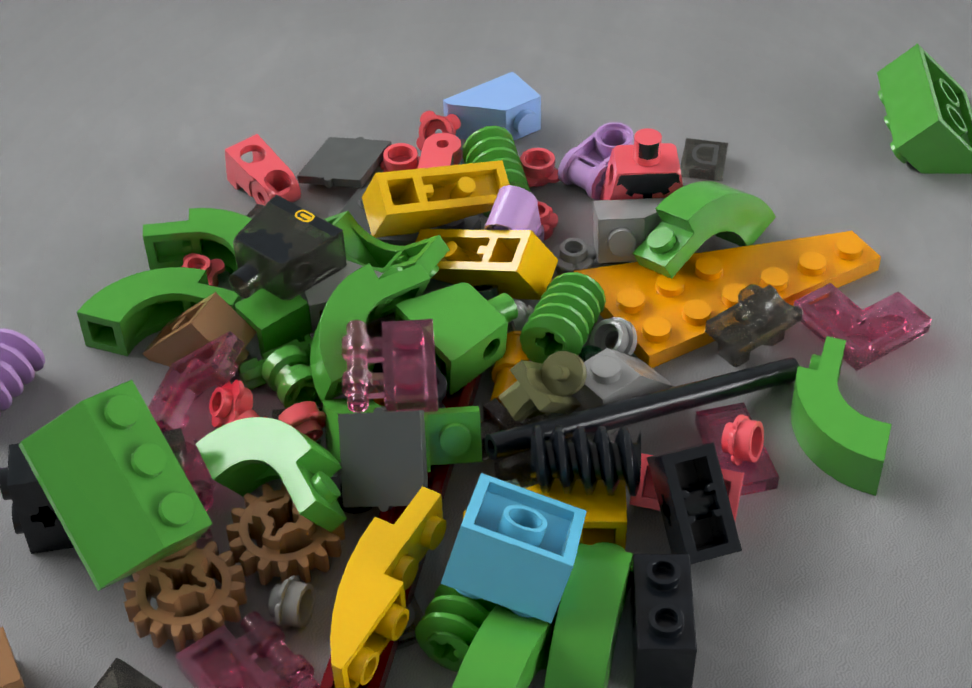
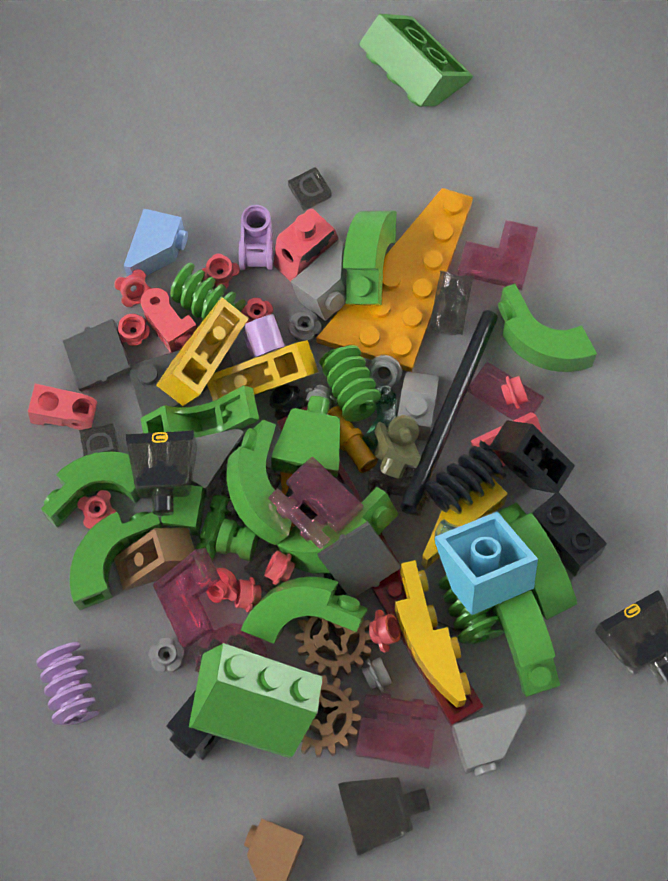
camera: 40 degrees left, 25 degrees up
(334, 552) = (384, 630): none -> coral plate

